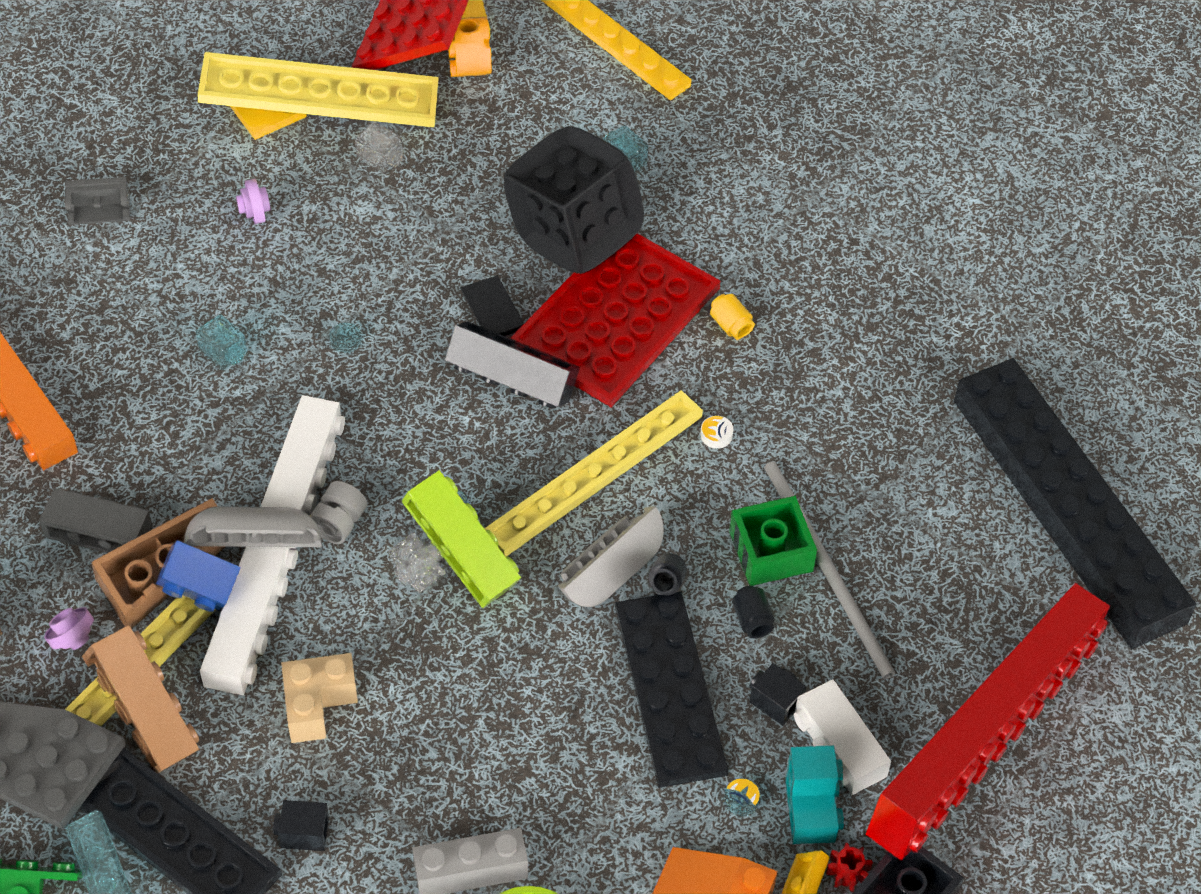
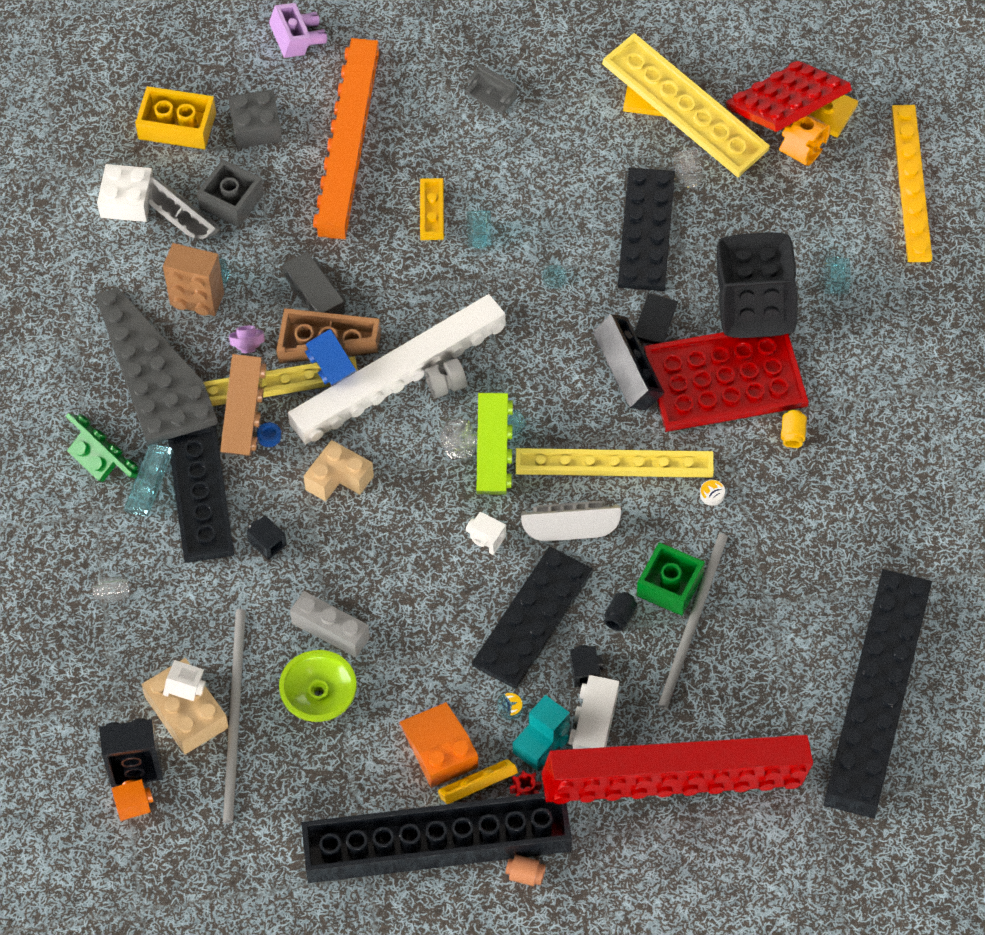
camera: 45 degrees right, 5 degrees up
(146, 358) = (431, 209): none -> yellow tile
(196, 712) = (269, 434): none -> blue tile
(253, 201) = (577, 152): lavender plate -> none
(253, 528) = (385, 352): light grey brick -> none
(394, 232) = (646, 229): none -> black plate
(538, 635) = (486, 532): none -> white brick
(667, 574) = (591, 552): black brick -> none

